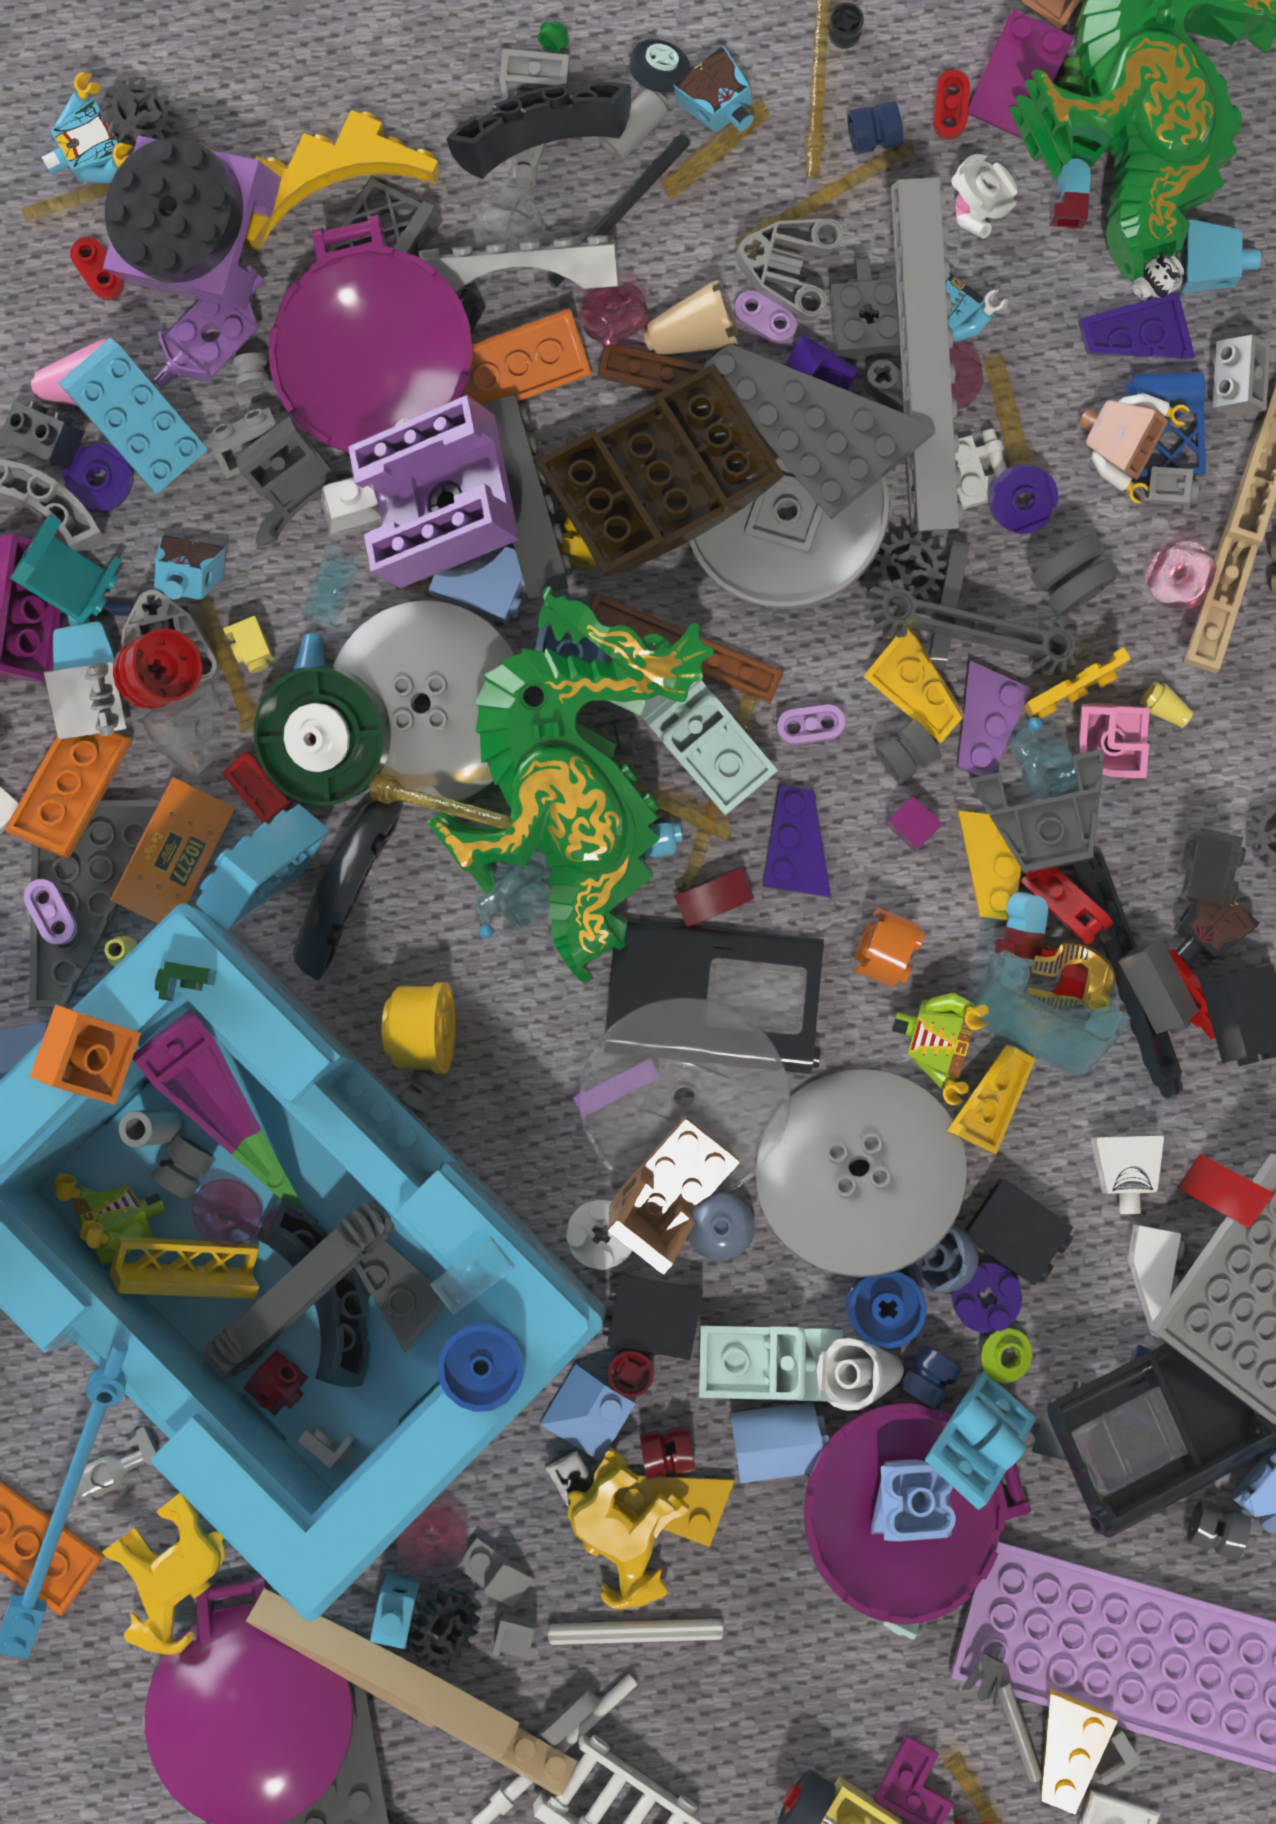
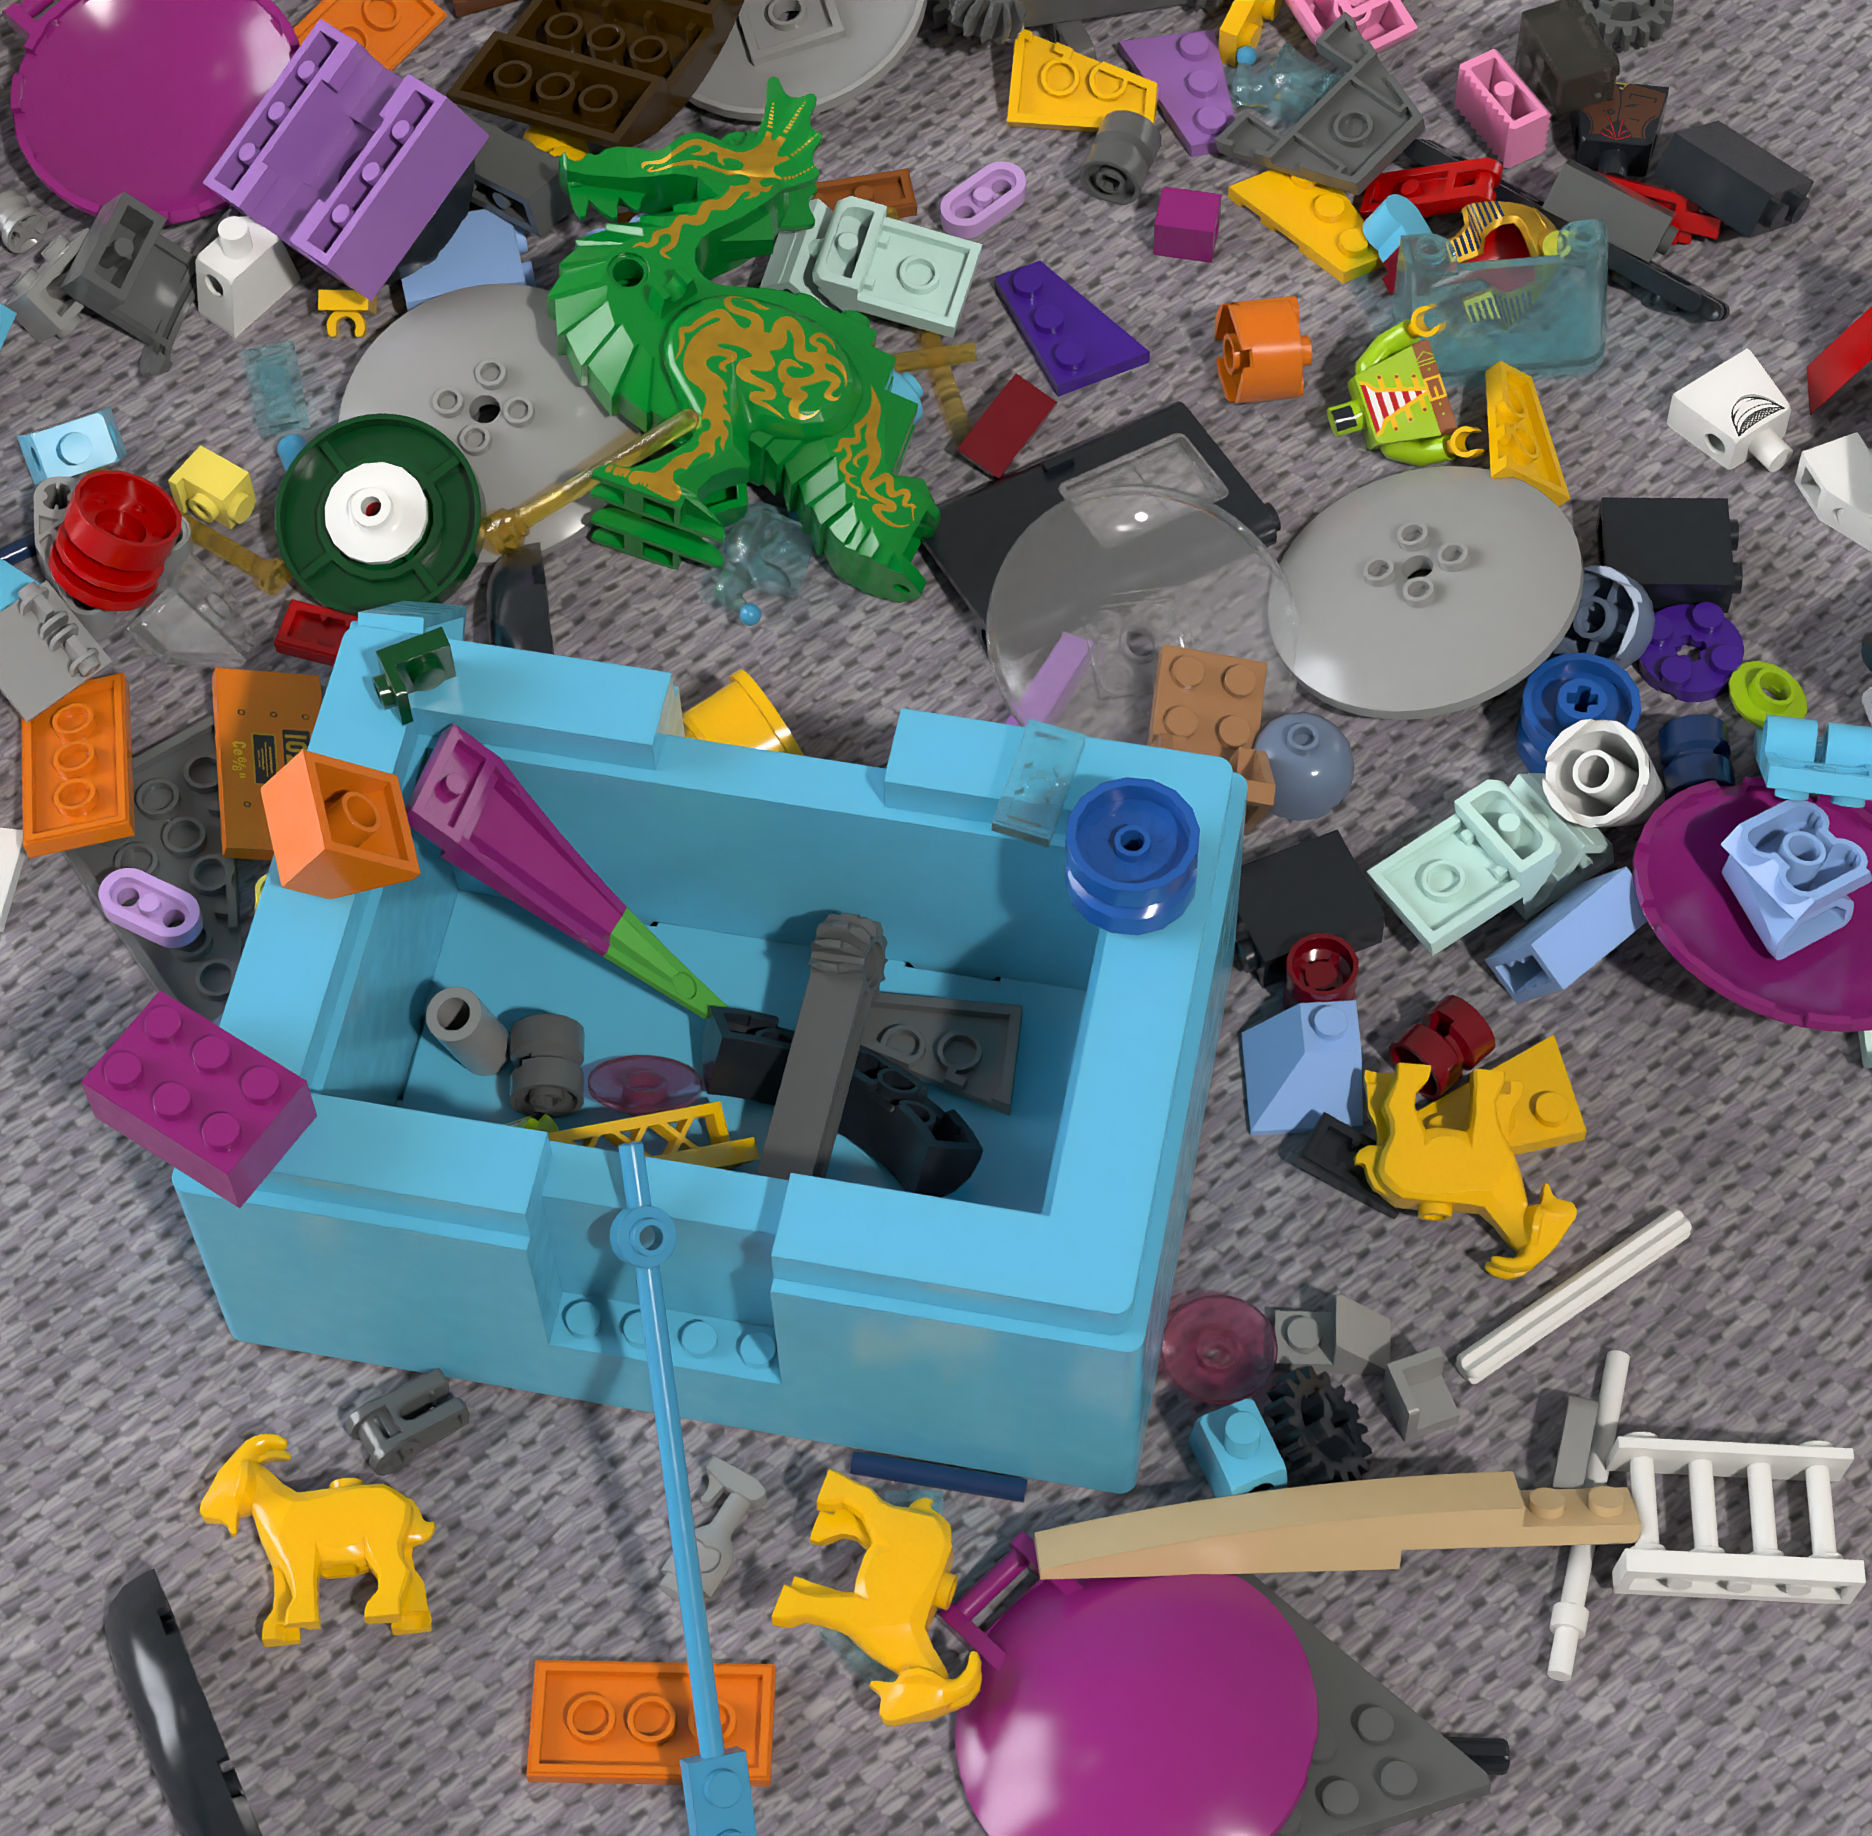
camera: 35 degrees left, 25 degrees down
(1153, 868) = (1501, 108): none -> bright pink brick

